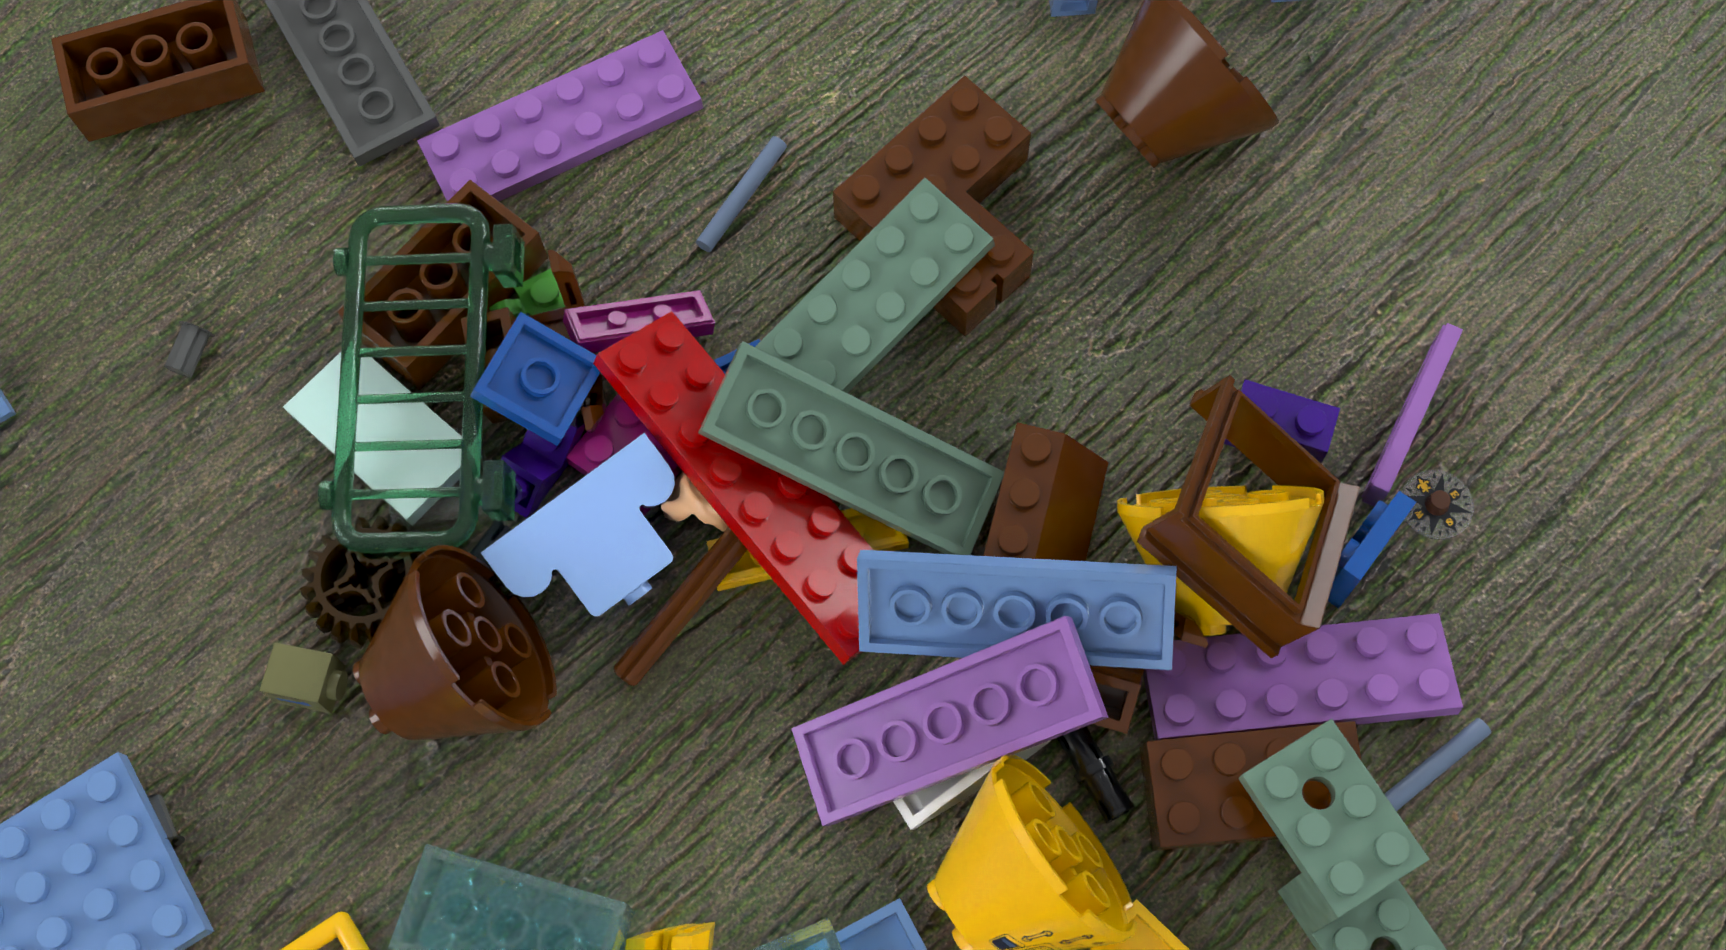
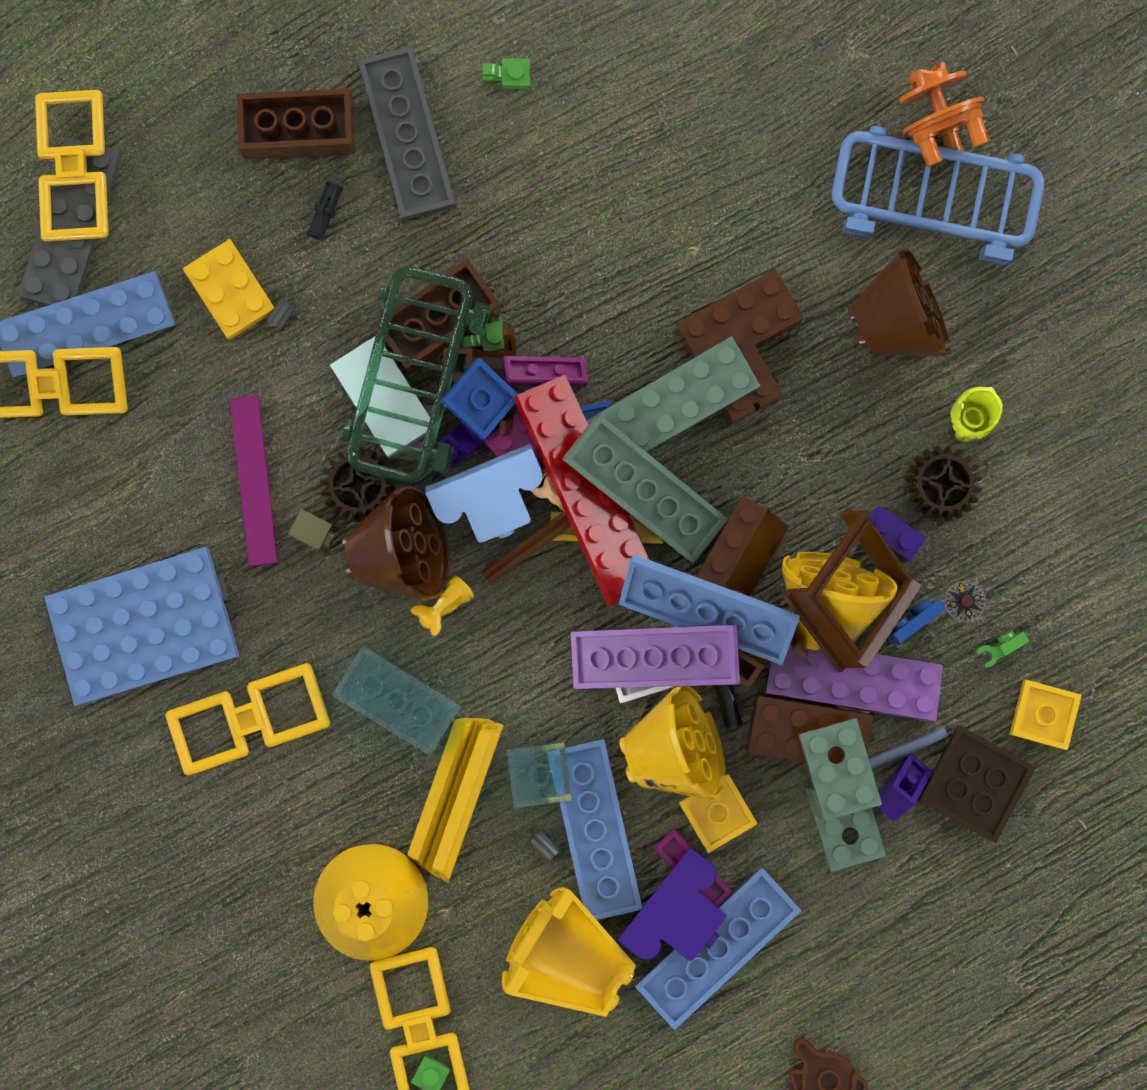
camera: 10 degrees right, 15 degrees up
(95, 336) = (229, 289): none -> yellow plate
(190, 628) = (254, 481): none -> magenta tile
(230, 181) = (331, 193): none -> black pin
(564, 121) = (529, 224): medium lavender plate -> none
(572, 722) = (455, 594): none -> yellow animal
(741, 194) = (624, 301): sand blue bar -> none
(1349, 208) = (976, 413): none -> neon yellow hair
(1350, 309) = (966, 486): none -> dark brown gear
(1411, 414) = (968, 547): medium lavender tile -> none
(1451, 838) = (903, 787): none -> dark purple slope
(1533, 549) = (1007, 644): none -> bright green plate
(1570, 799) = (976, 783): none -> dark brown plate
(1640, 648) = (1045, 714): none -> yellow plate

